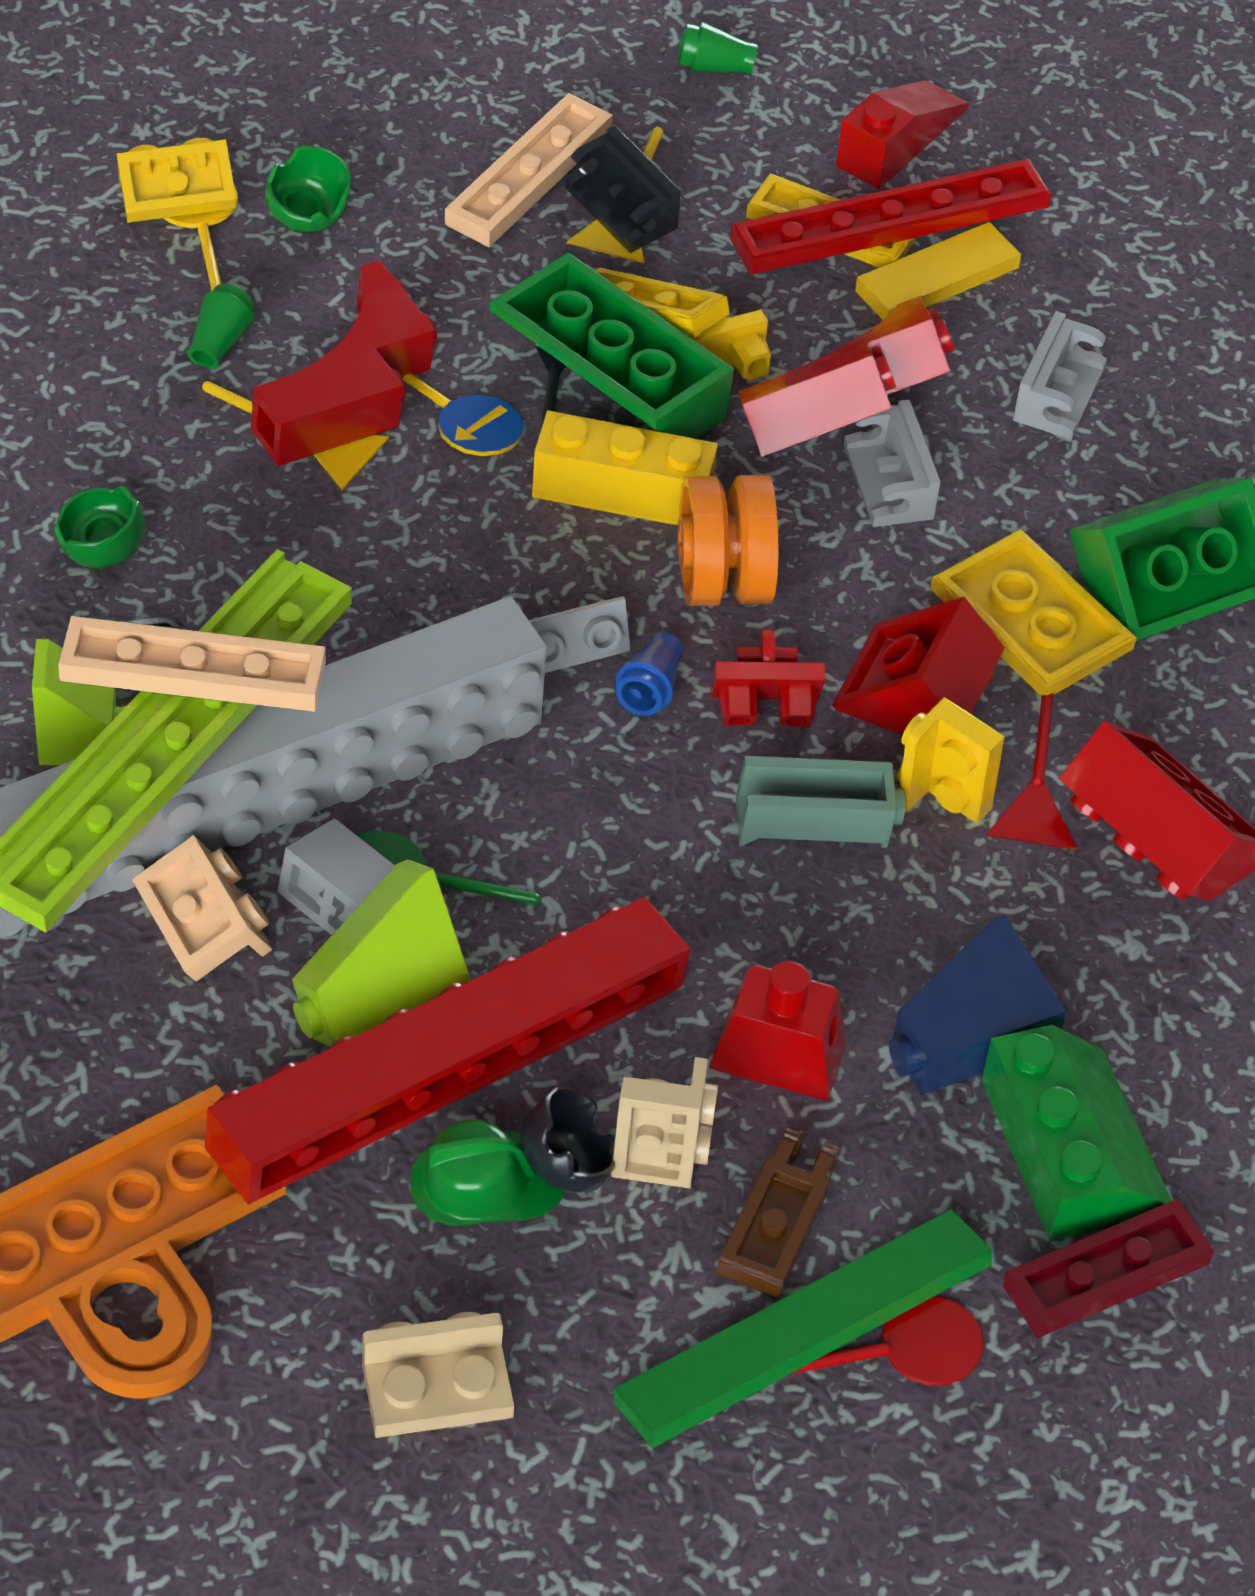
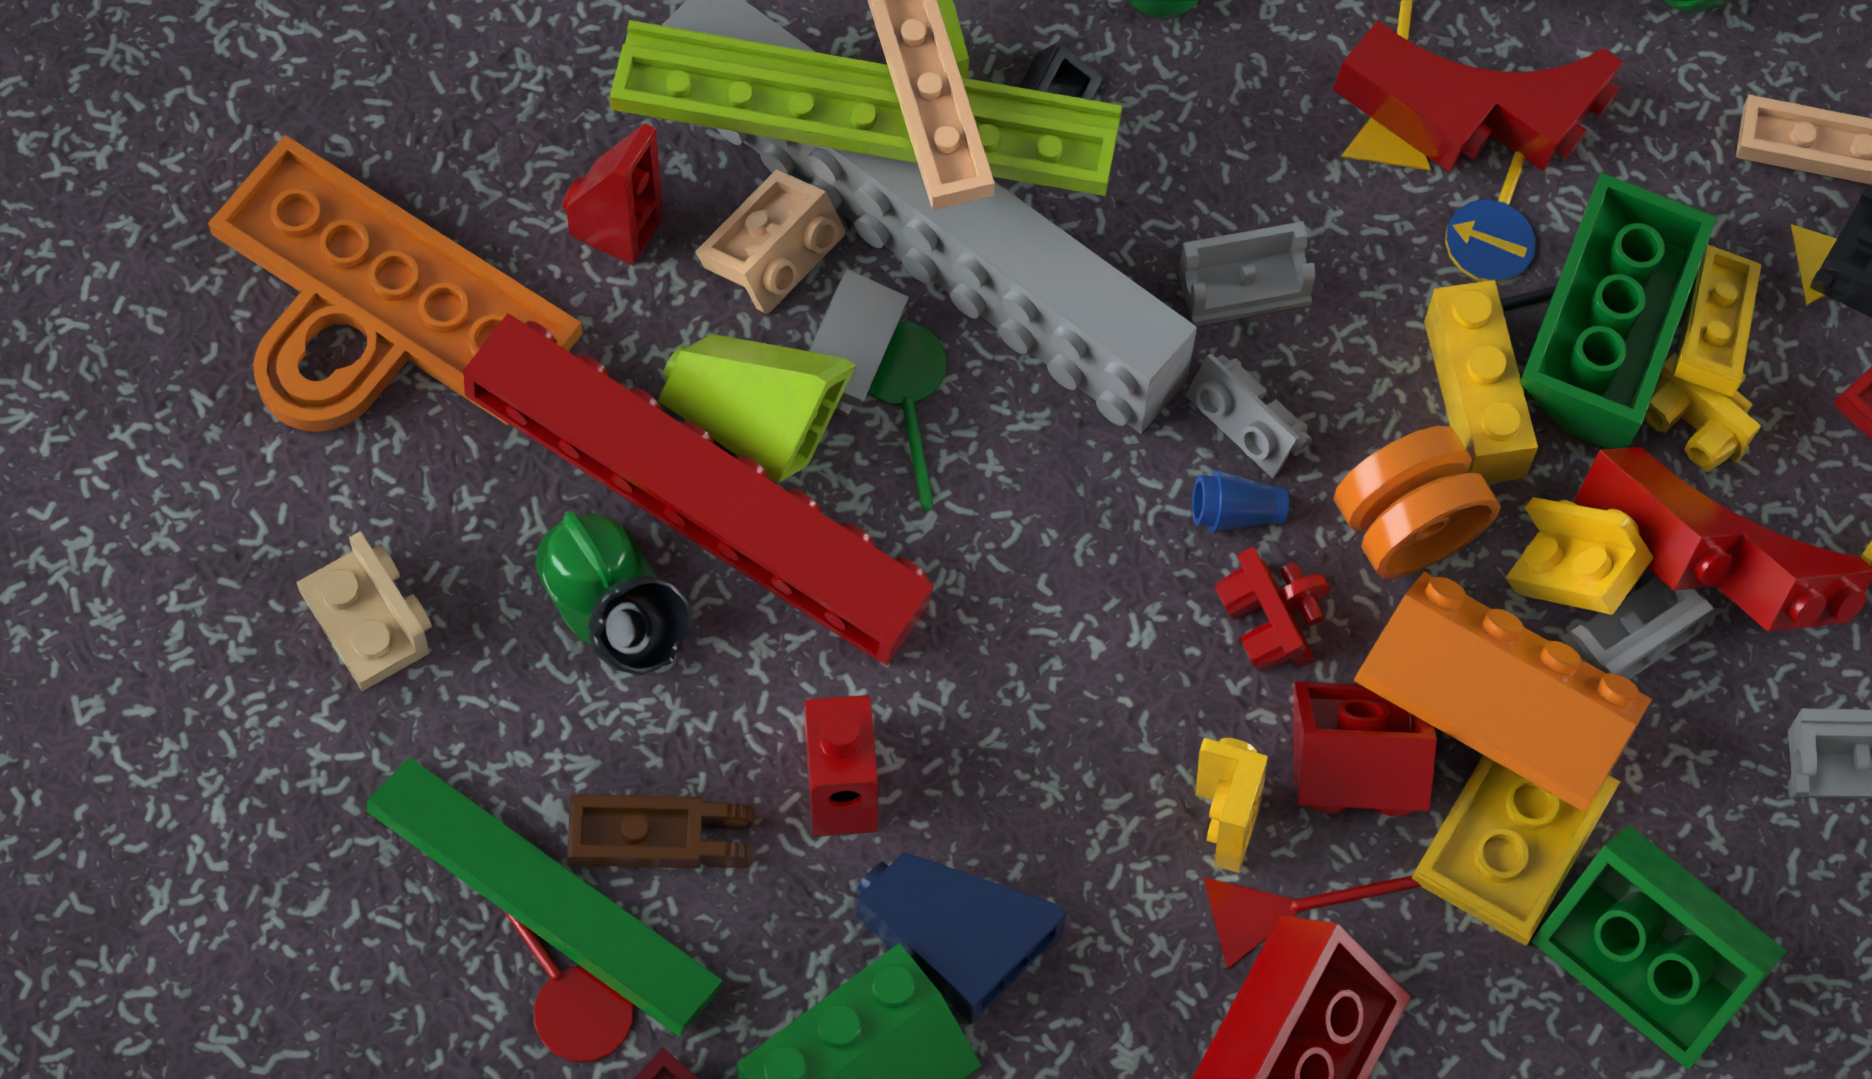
camera: 70 degrees right, 15 degrees up
(111, 987) = (619, 198): none -> red slope
(434, 577) = (1246, 274): none -> light grey hinge
(662, 1130) = (685, 712): tan bracket -> none
(817, 800) = (1144, 705): sand green window -> none
(824, 462) = (1580, 556): none -> yellow bracket
(921, 551) = (1504, 689): none -> orange slope

